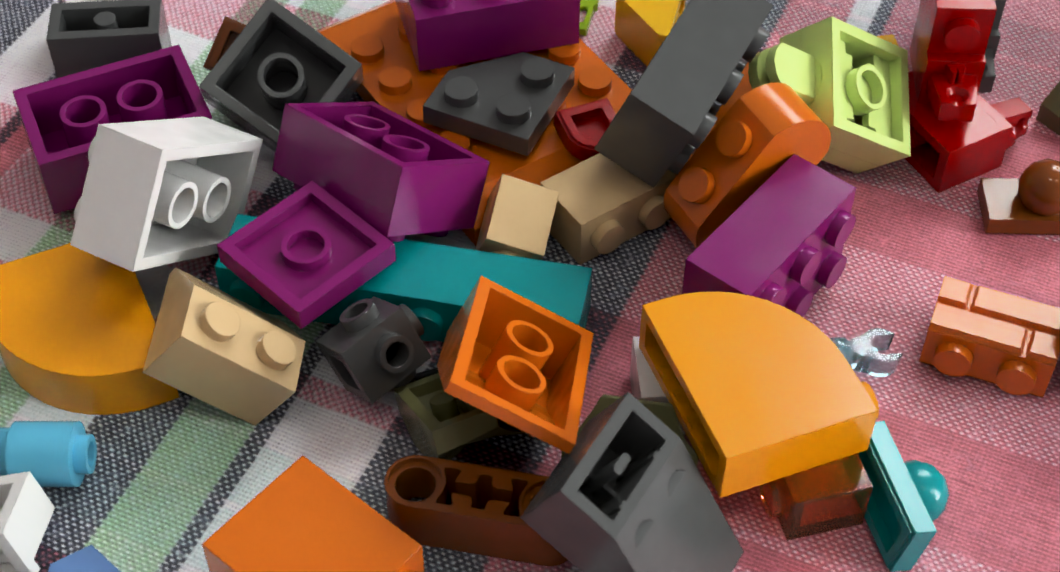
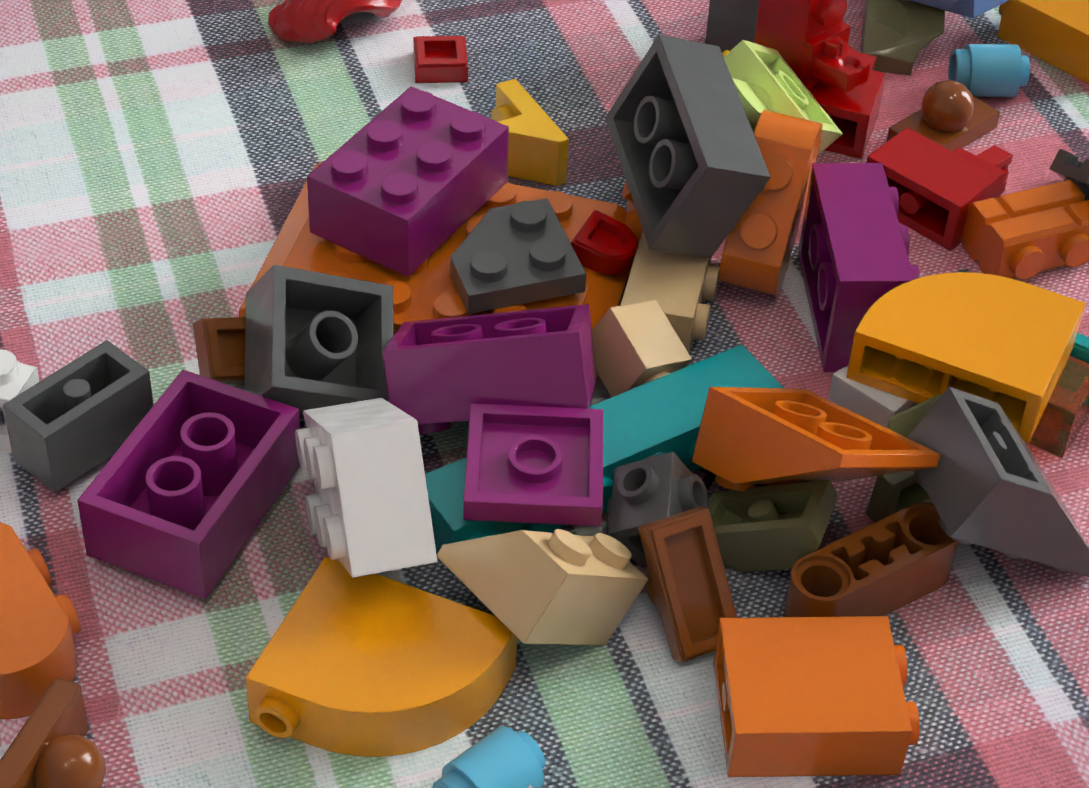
camera: 45 degrees left, 5 degrees down
(326, 411) = (687, 581): none -> dark orange tile
(949, 235) = (939, 183): none -> red hinge

